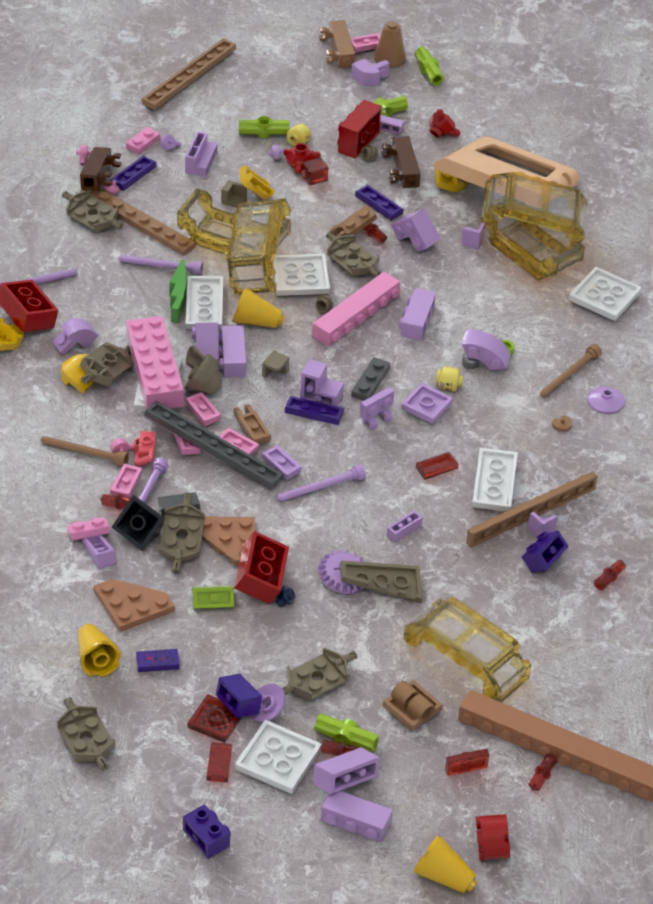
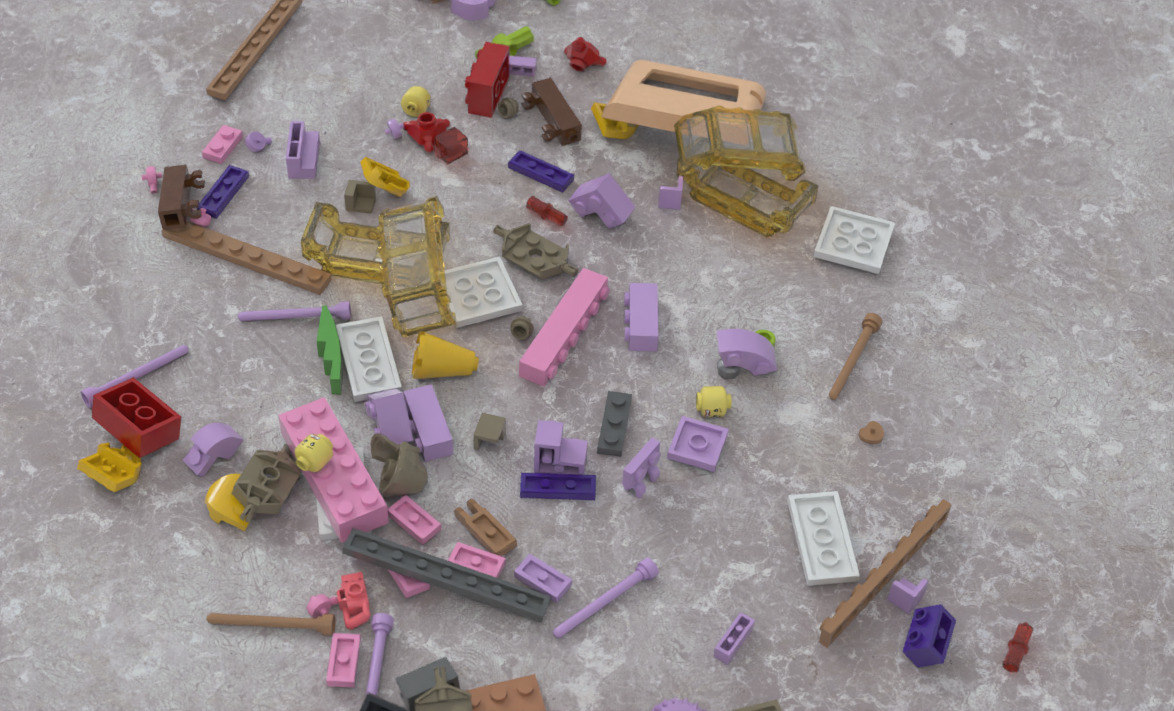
camera: 15 degrees left, 5 degrees up
(84, 204) = (170, 251): dark tan plate -> none
(118, 501) = (342, 696): clear red axle -> none
(142, 345) = (314, 452): none -> light yellow head
(263, 127) = (369, 98): lime piece -> none
(355, 222) = (523, 206): medium nougat hinge -> none
(437, 465) = (741, 532): clear red tile -> none
(606, 400) = (910, 386): lavender dish -> none

